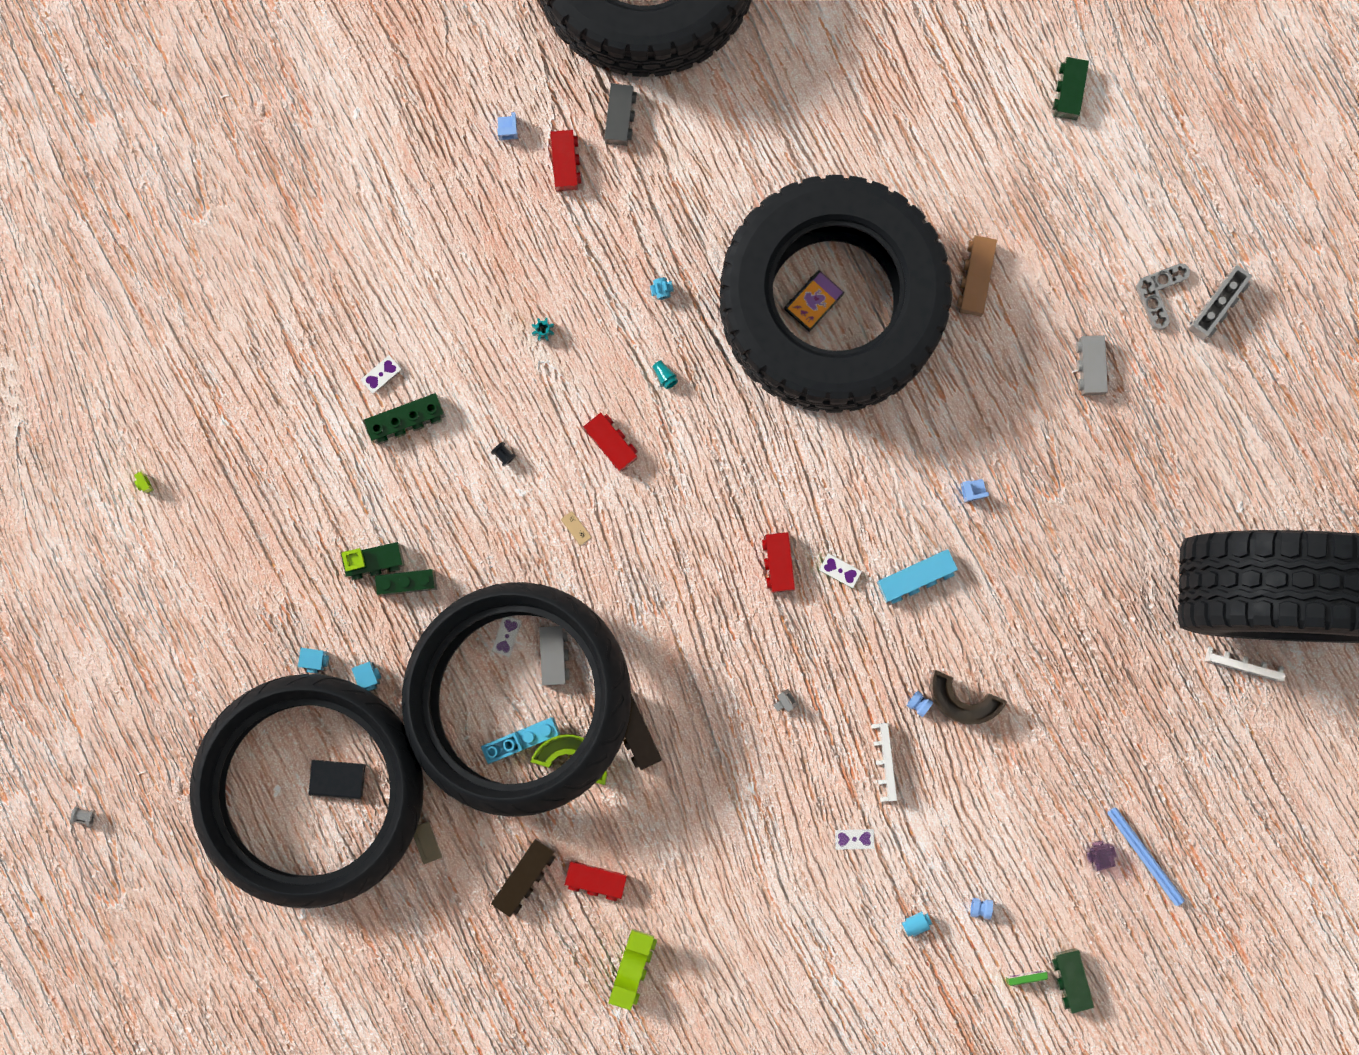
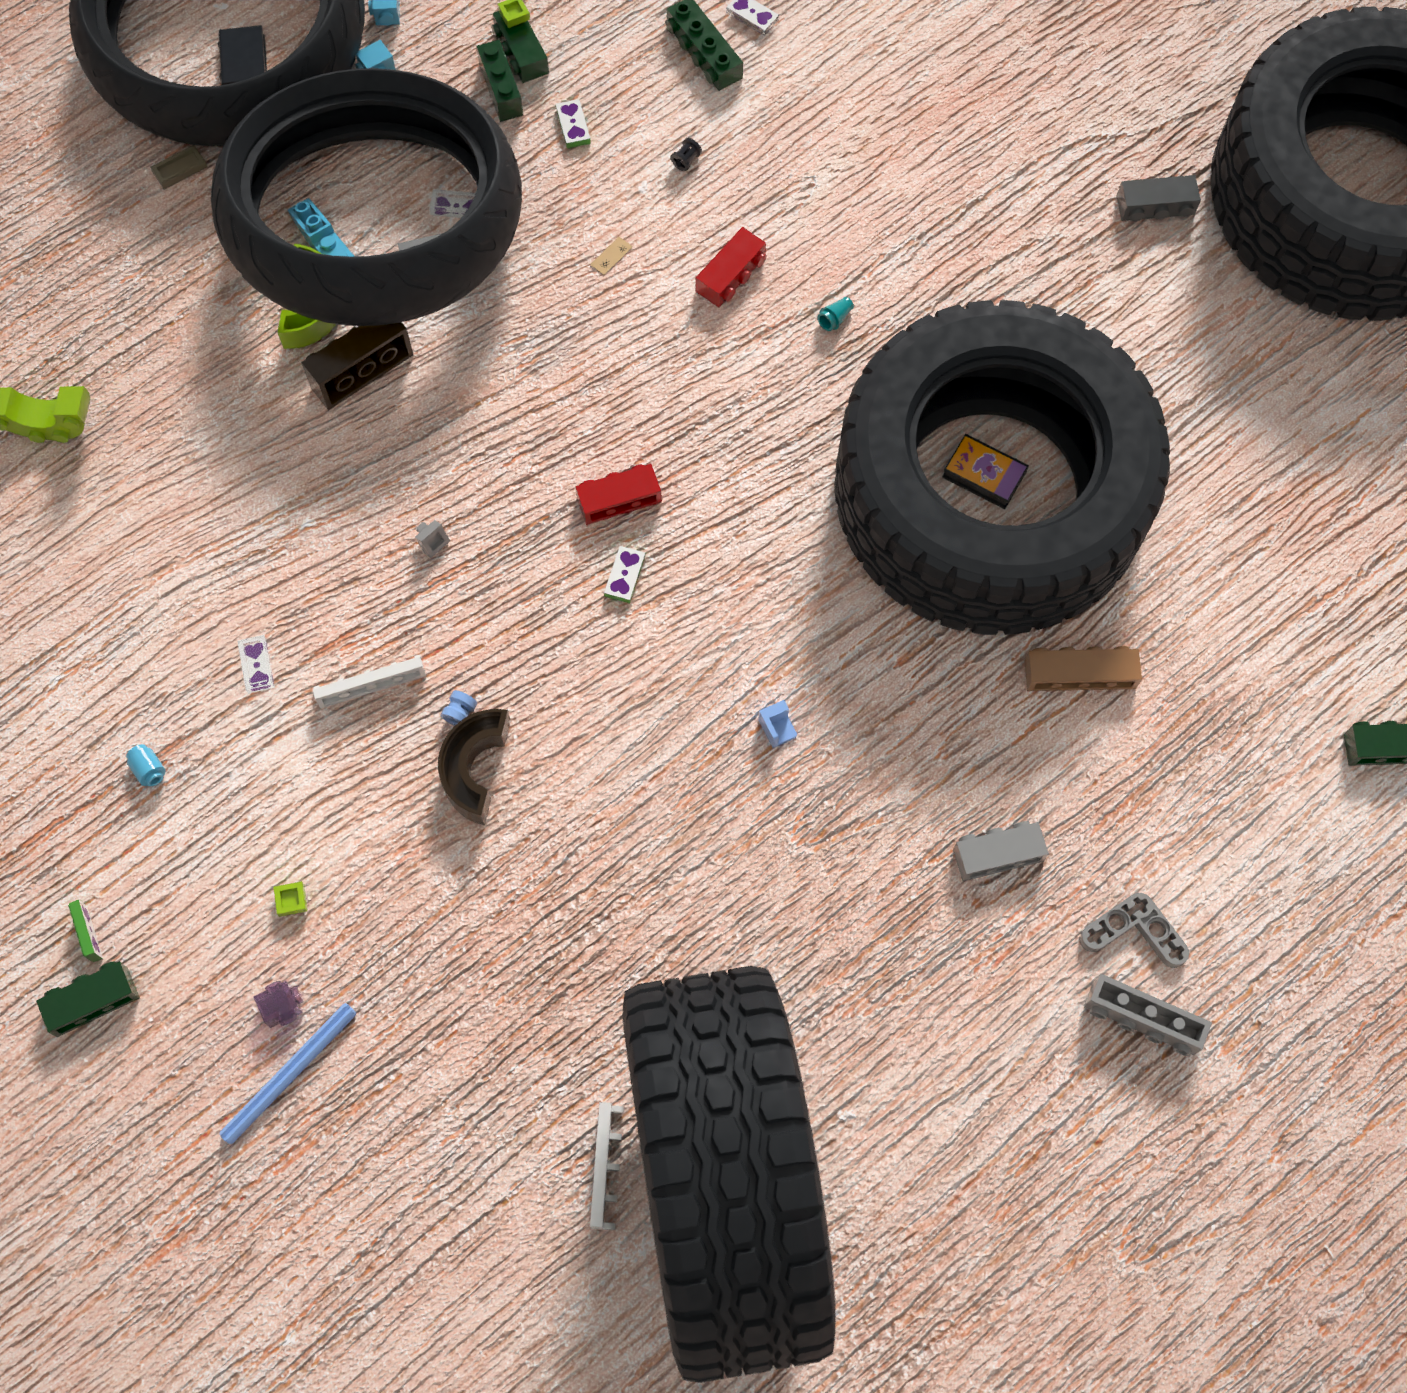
camera: 75 degrees right, 15 degrees down
(453, 534) = (573, 123): none -> tile
(507, 127) = (1099, 86): light blue panel -> none
(523, 877) = (146, 272): dark brown brick -> none
(537, 327) = (855, 166): teal gear -> none
(565, 160) = (1078, 149): red brick -> none
(595, 880) = (154, 357): red brick -> none
(661, 288) = (947, 286): medium azure gear -> none
(916, 576) = (638, 671): medium azure brick -> none
(982, 908) = (179, 848): light blue wheel -> none
(1031, 838) = (290, 899): none -> lime plate

